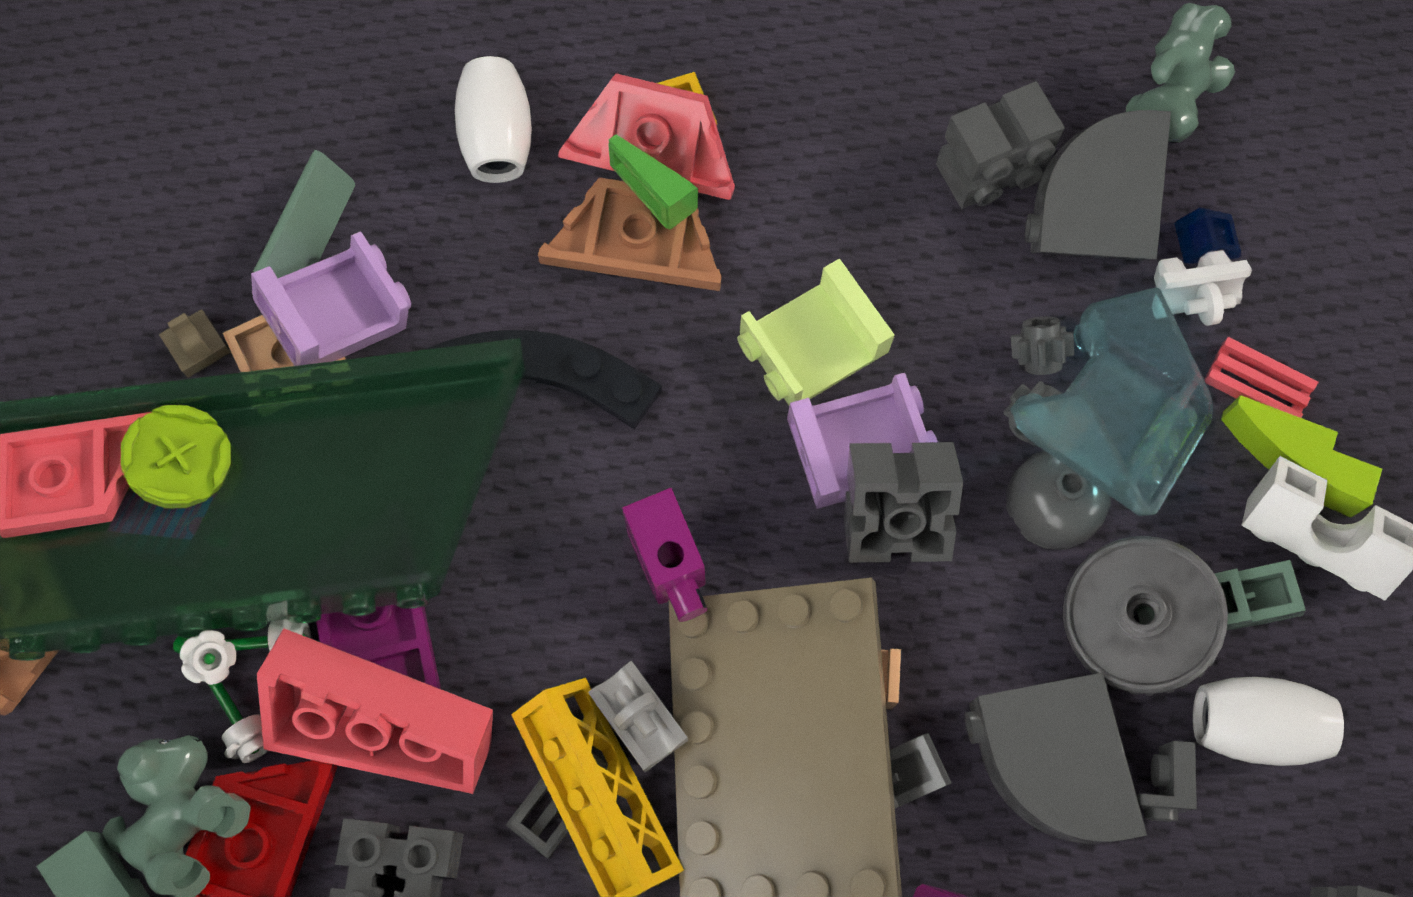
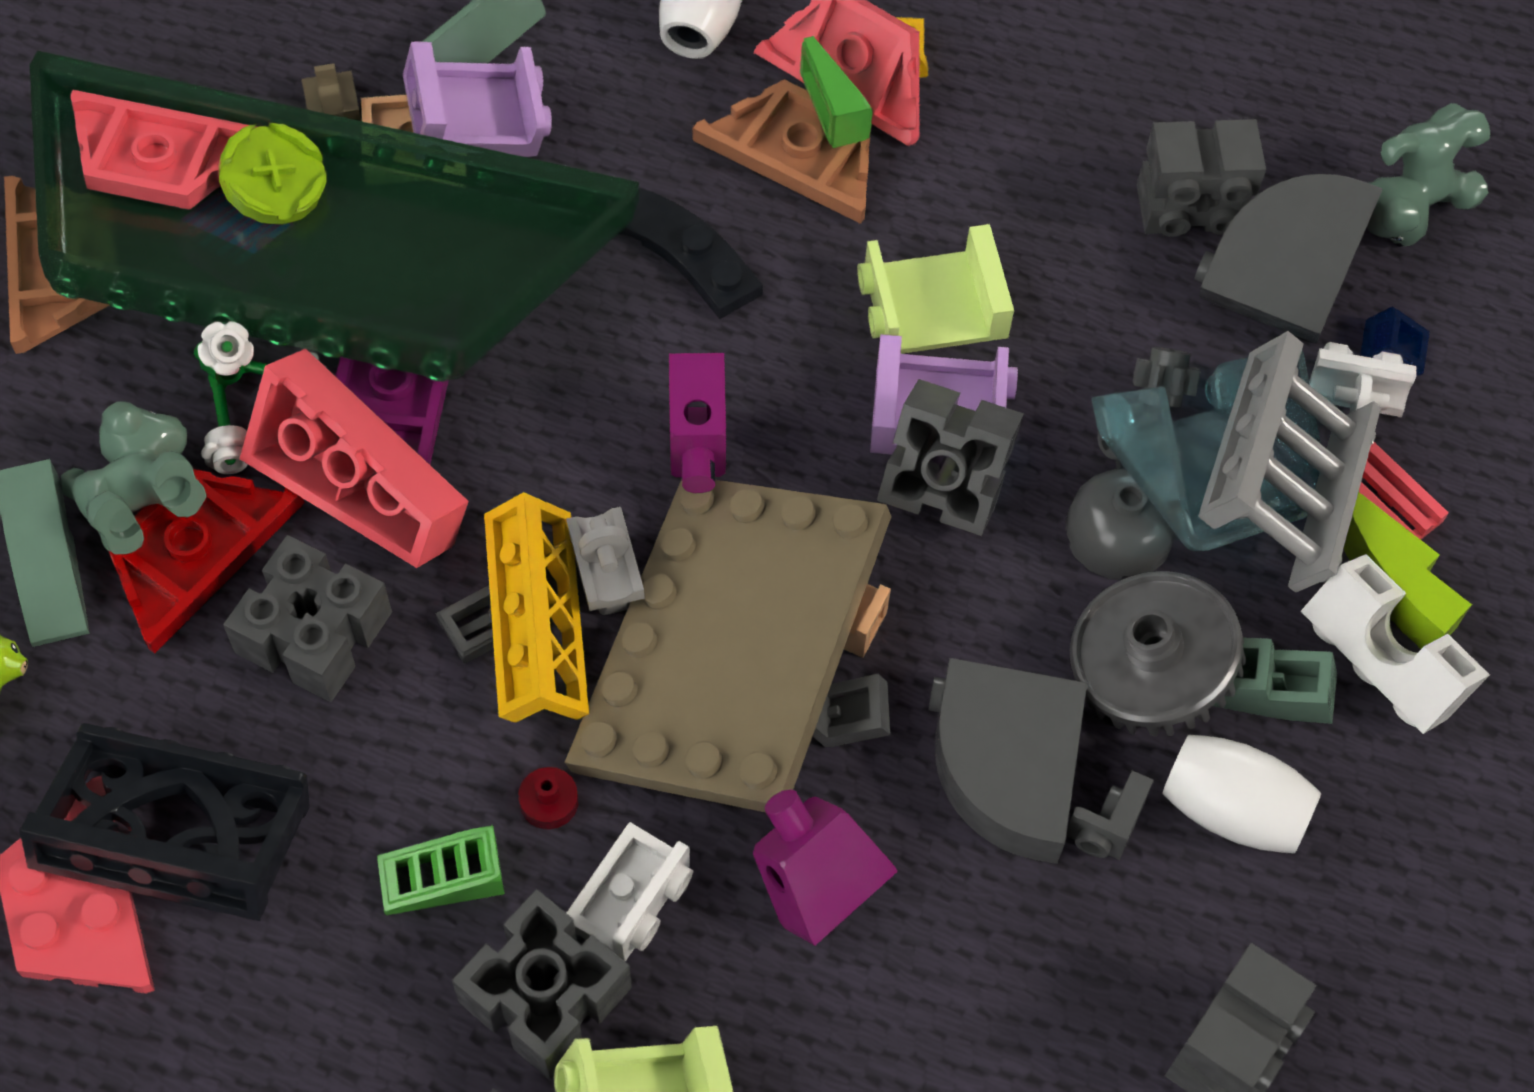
camera: 20 degrees right, 10 degrees down
(1162, 407) = (1248, 458): none -> light grey fence

